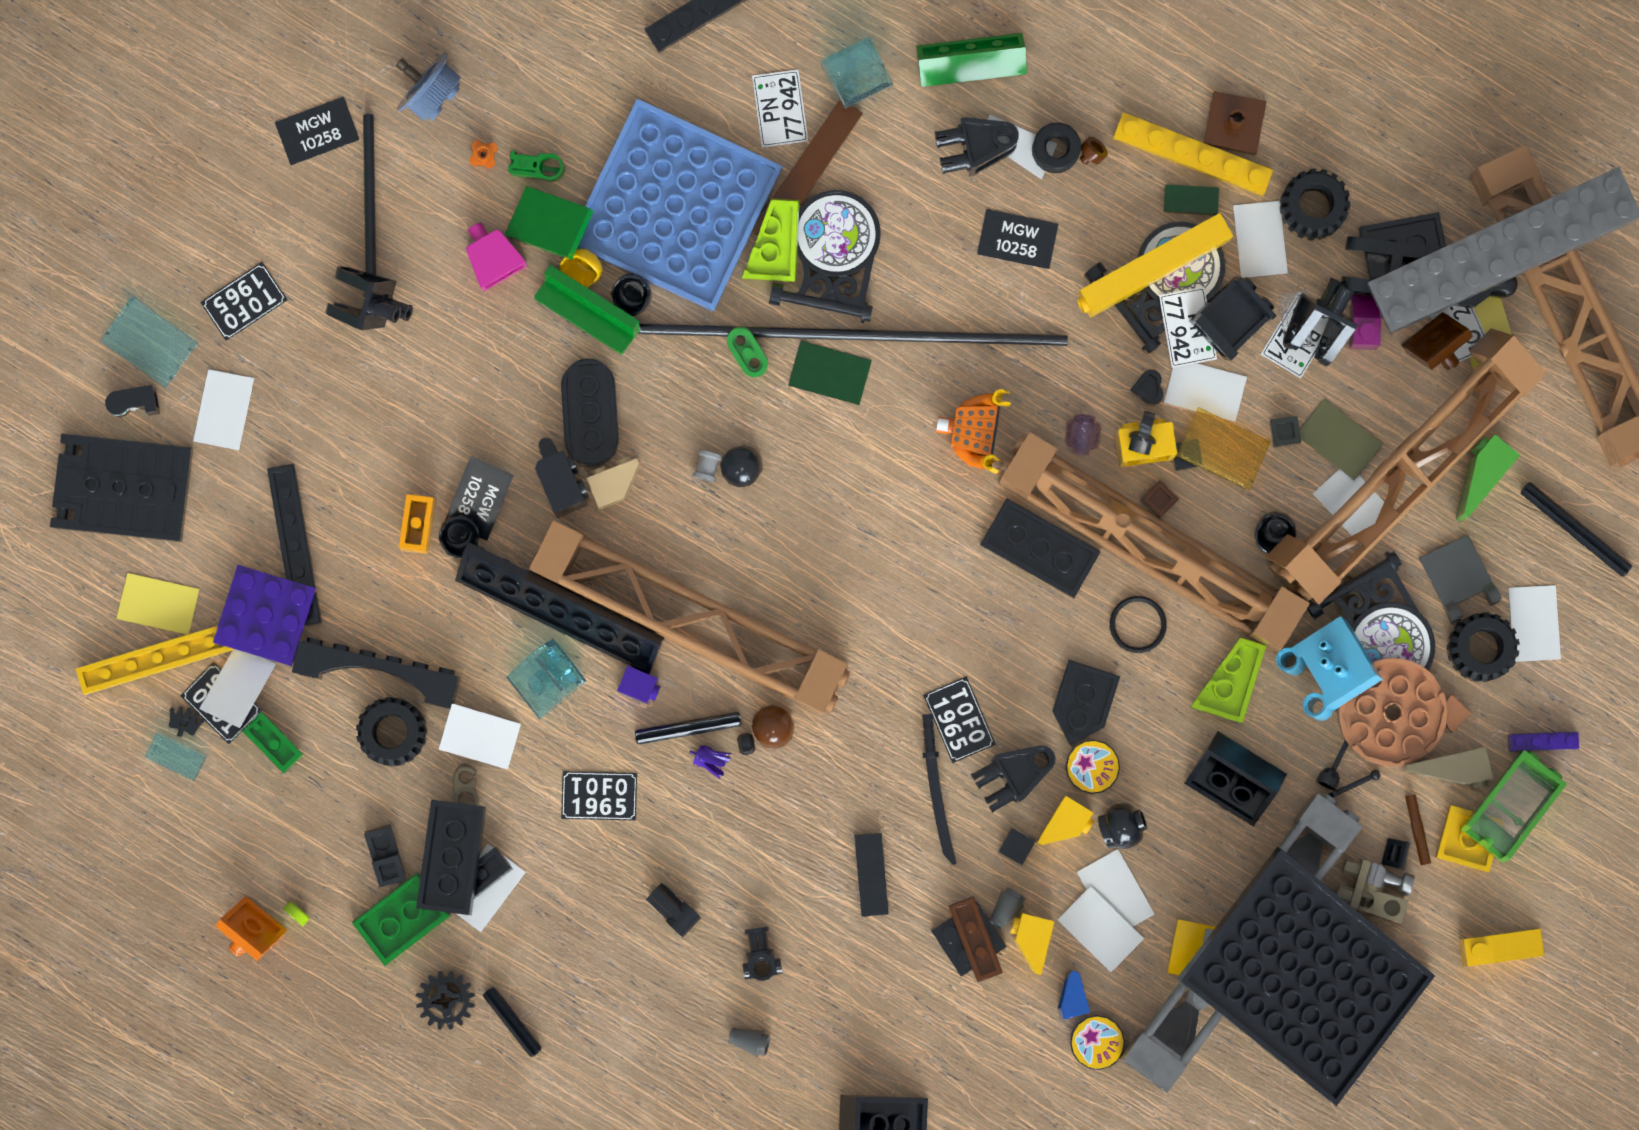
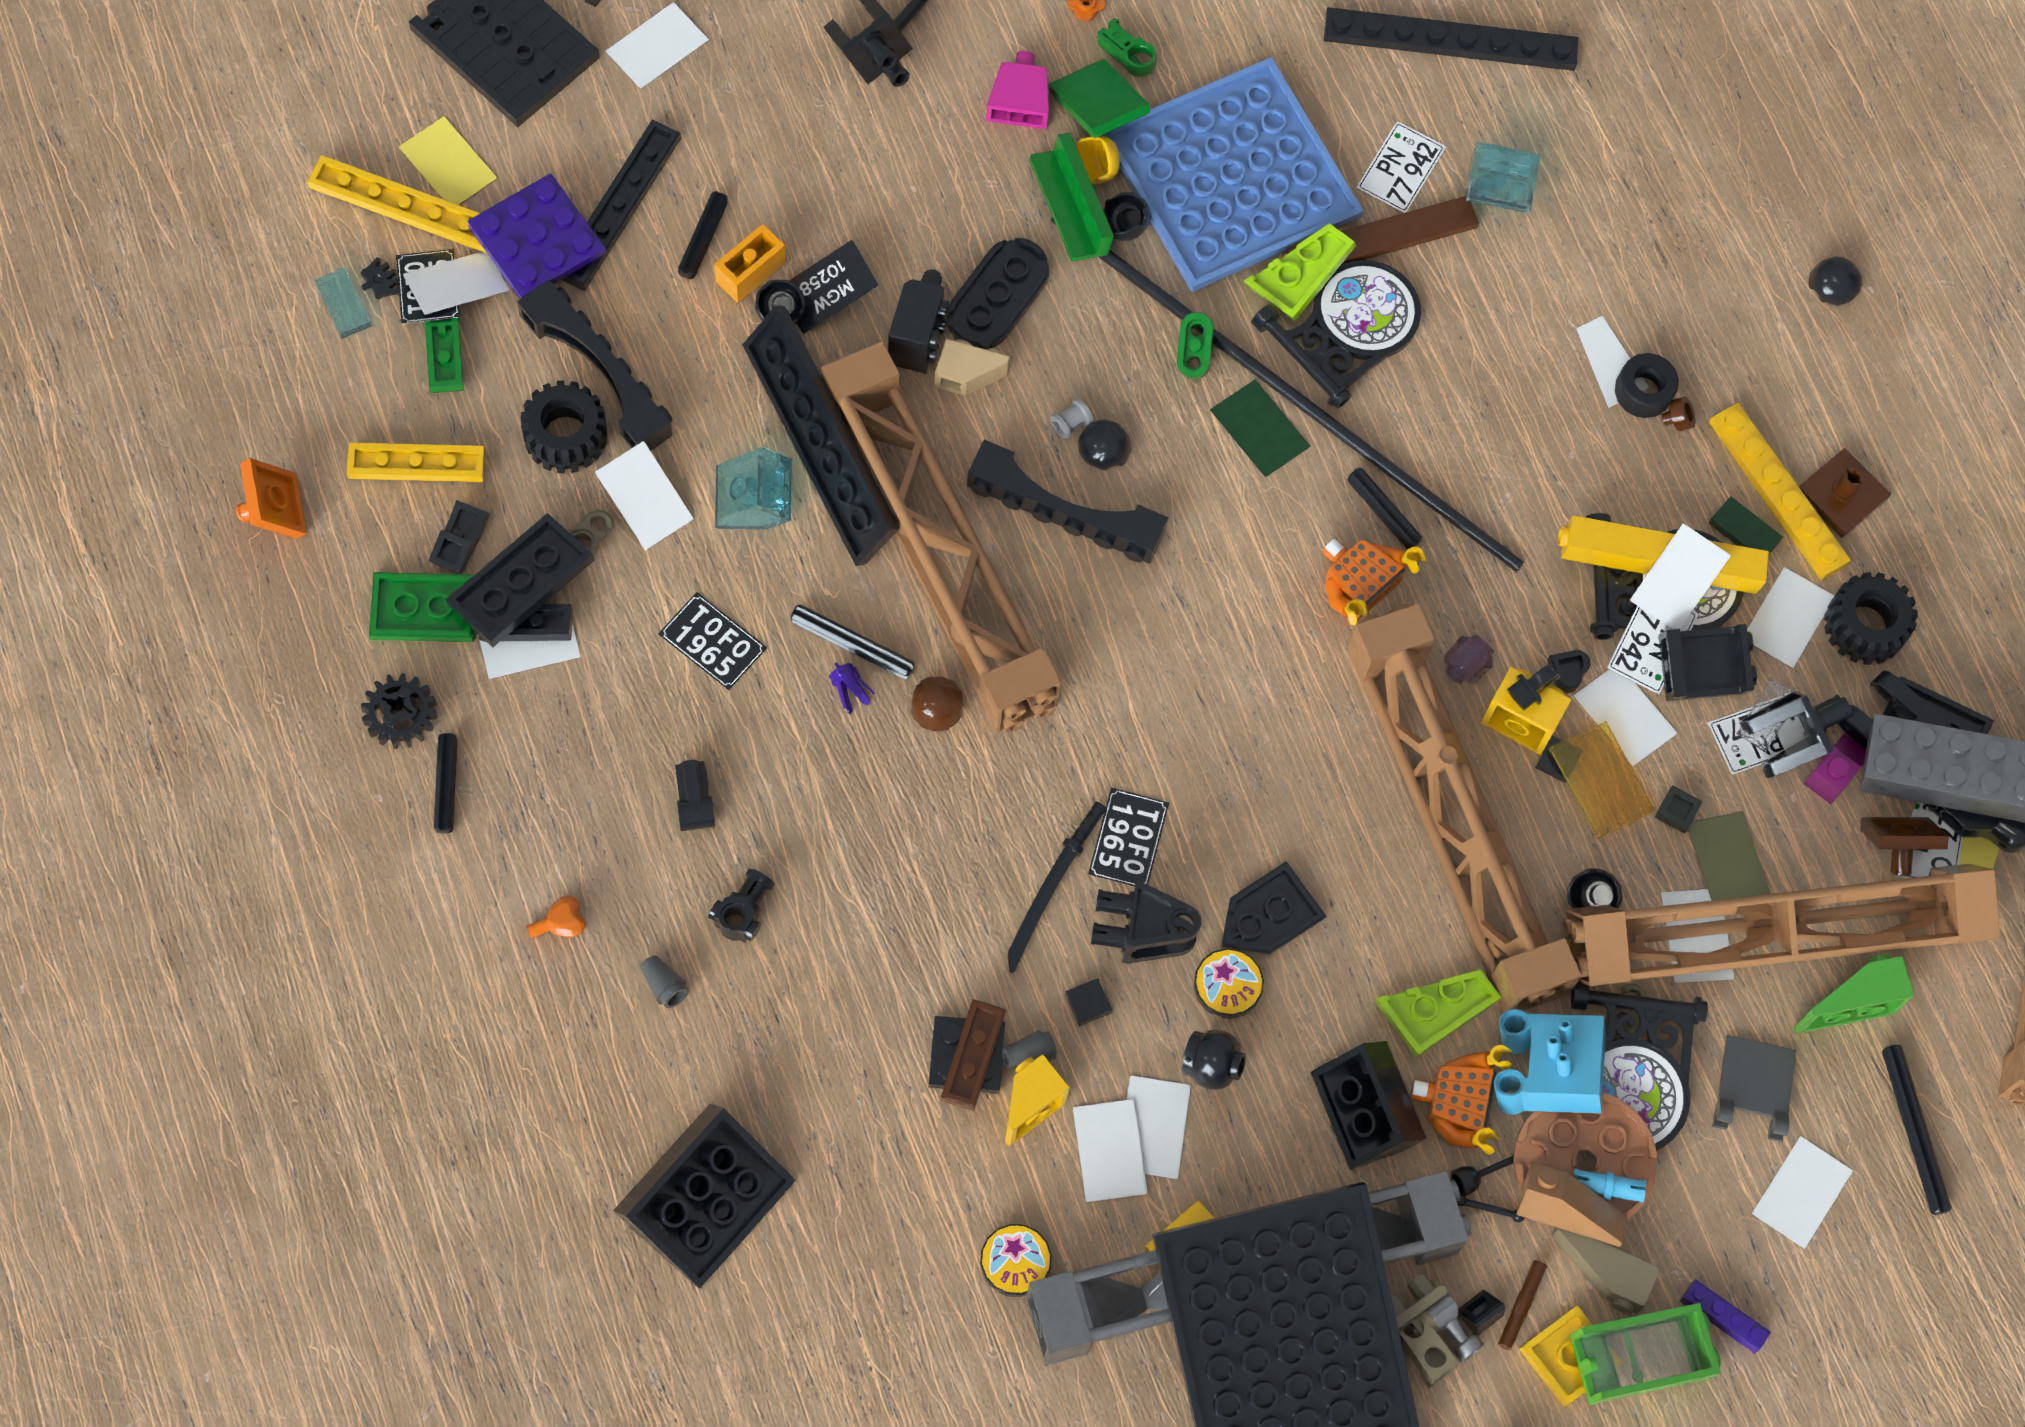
camera: 30 degrees right, 15 degrees down
(296, 913) = (328, 522): lime tile -> none
(316, 828) = (416, 462): none -> yellow plate
(367, 524) = (702, 235): none -> black axle
(639, 685) = (837, 564): dark purple brick -> none
(655, 1051) = (561, 919): none -> orange rock
(746, 743) = (897, 700): black rock -> none
(809, 513) = (1131, 532): none -> black arch
(871, 874) = (918, 917): black tile -> none
(952, 368) = (1384, 508): none -> black axle
(971, 59) = (1622, 254): panel -> none
(979, 144) = (1574, 326): black piece -> none
(1017, 239) = (1542, 443): black sticker -> none
(1040, 548) = (1340, 737): black tile -> none
(1067, 822) = (1157, 1014): yellow slope -> none
(1073, 998) = (1024, 1188): blue tile -> none
(1138, 649) = (1378, 913): black tyre -> none
(1159, 499) = (1498, 780): reddish brown tile -> none
(1177, 276) = (1680, 577): none -> white sticker
(1290, 730) = (1463, 1098): none -> orange torso
(1405, 751) = (1568, 1204): none -> medium nougat slope
(1419, 719) = (1611, 1185): none -> medium azure pin
(1456, 713) = (1650, 1217): nougat tile -> none
(1505, 640) = (1750, 1149): black tyre -> none

